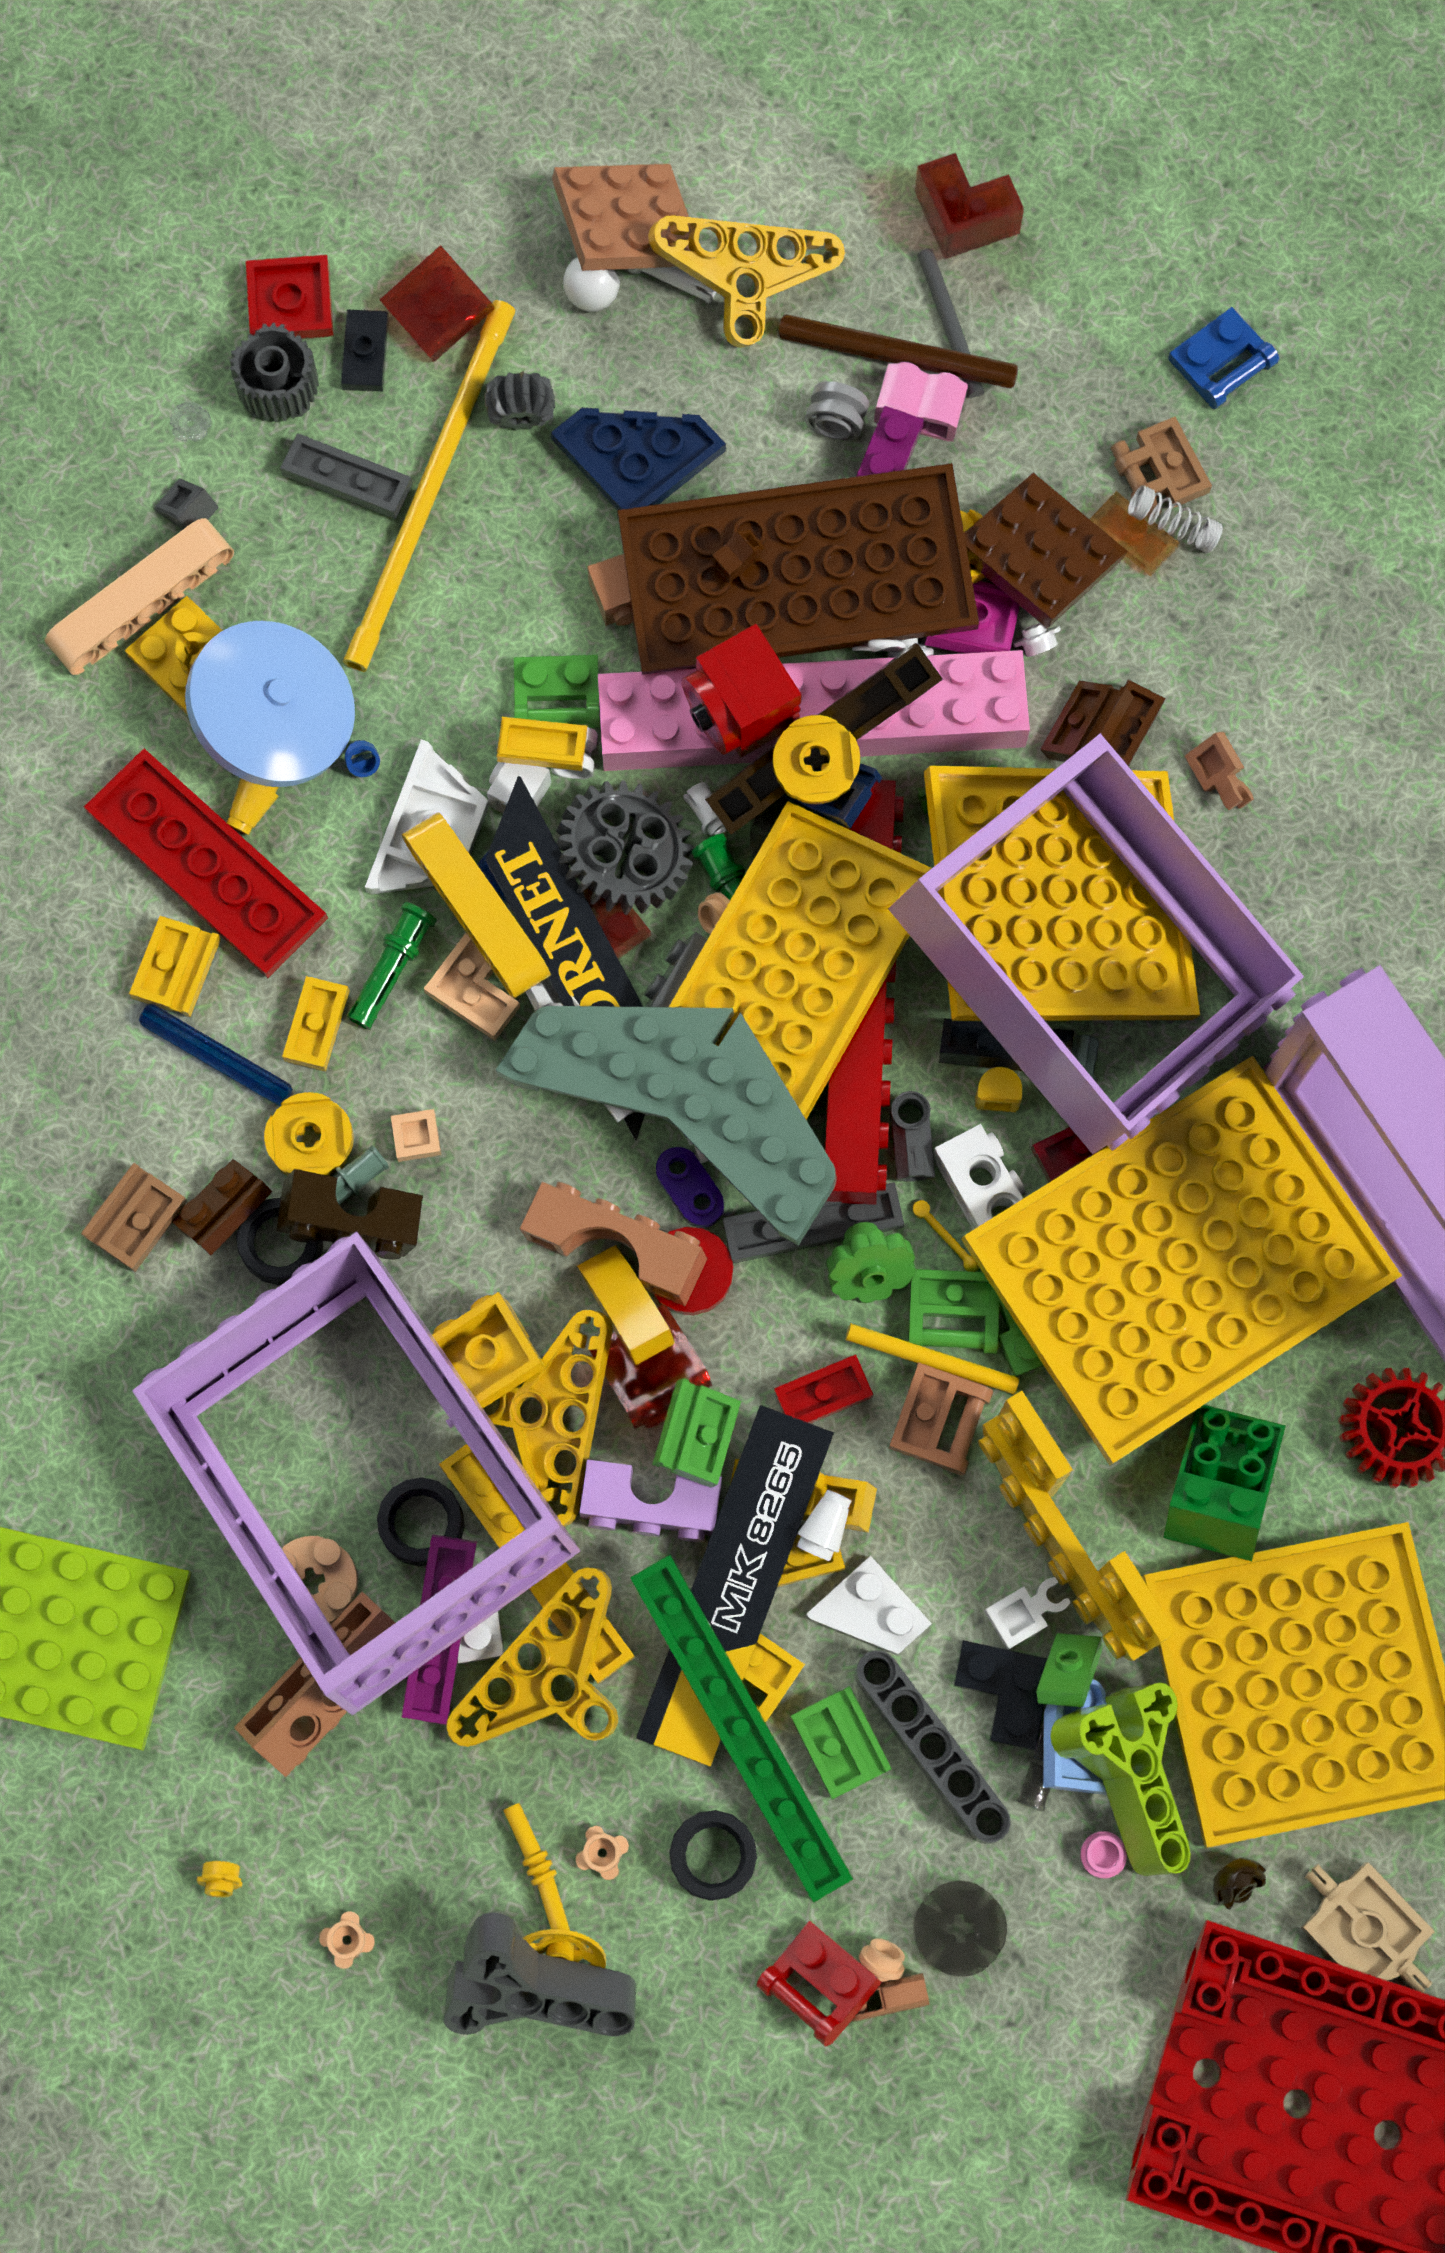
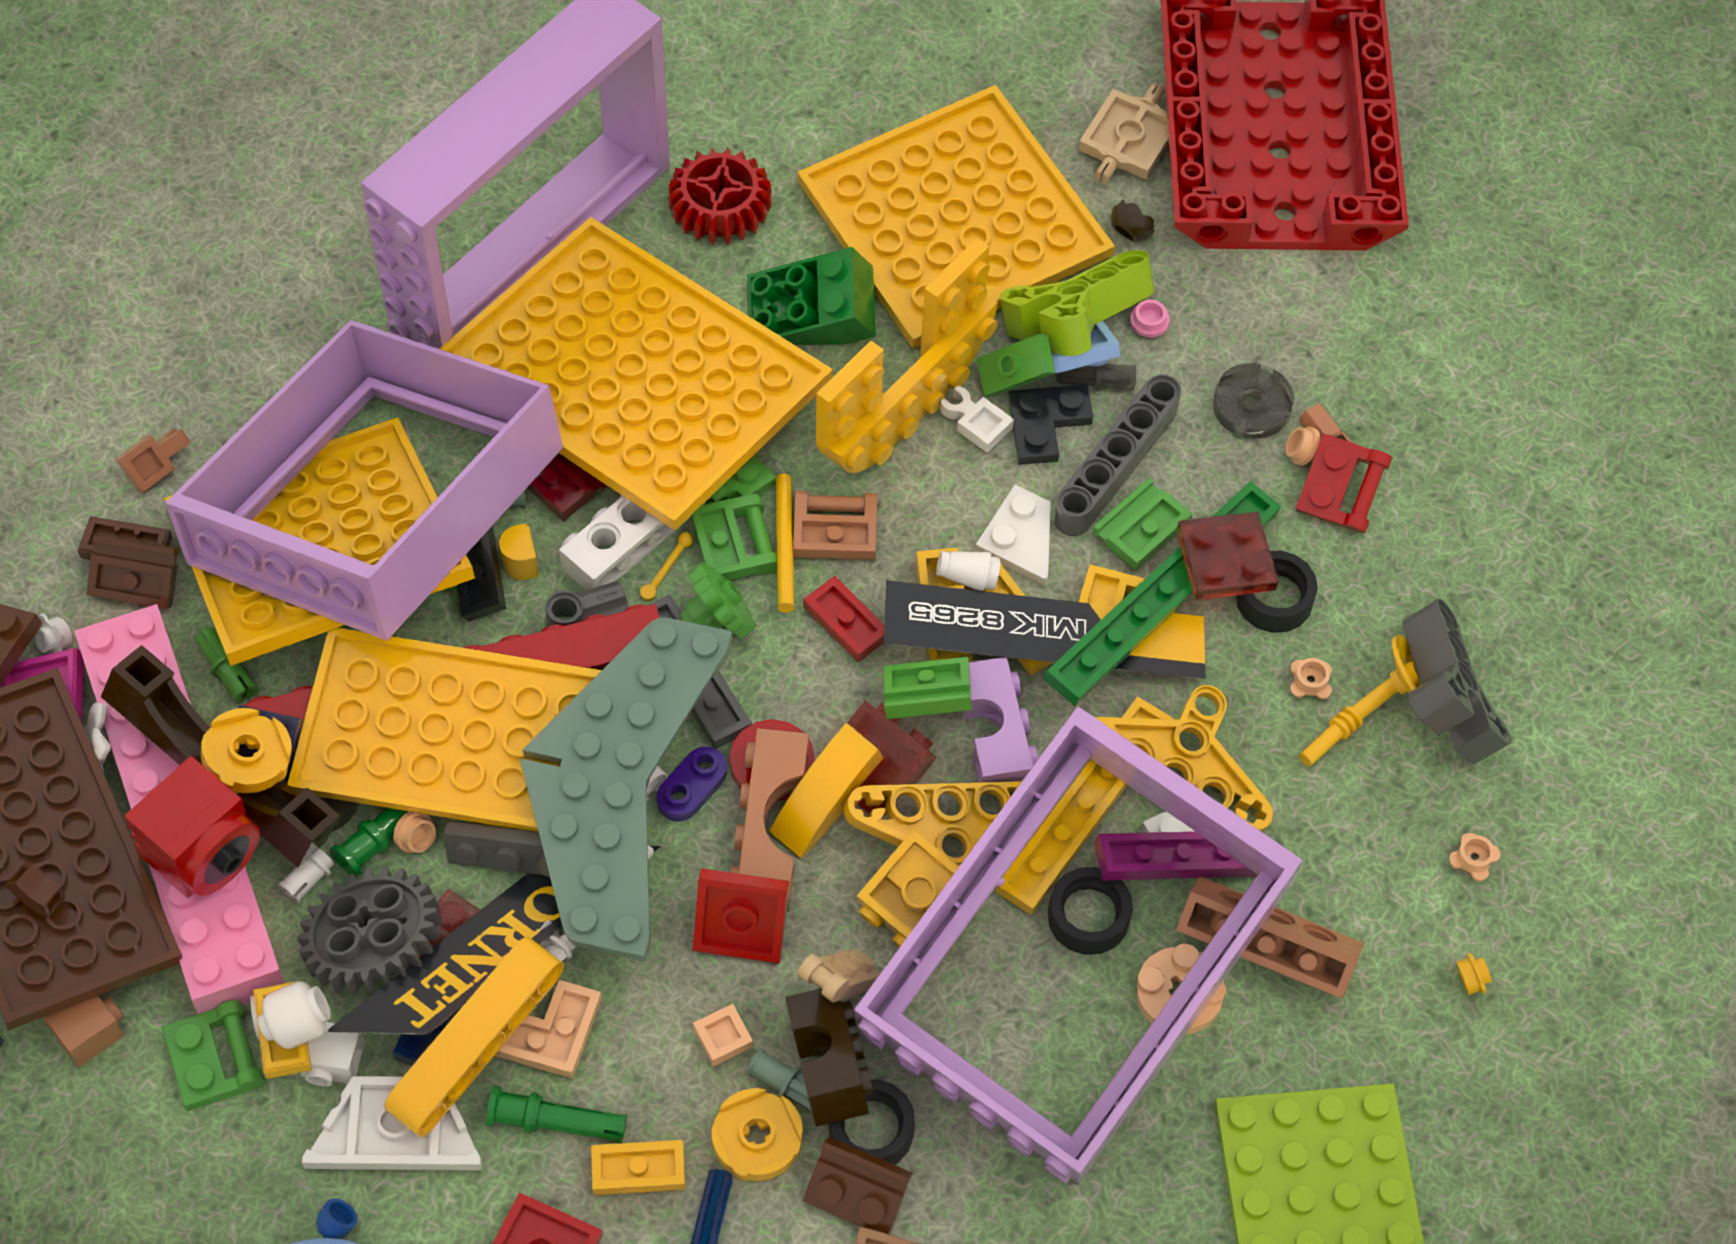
camera: 110 degrees left, 15 degrees down
(421, 1249) = (840, 973): none -> tan plate
(520, 1179) = (740, 915): none -> red plate
(536, 746) = (294, 1015): none -> white head
(757, 1807) = (1227, 555): none -> clear red plate

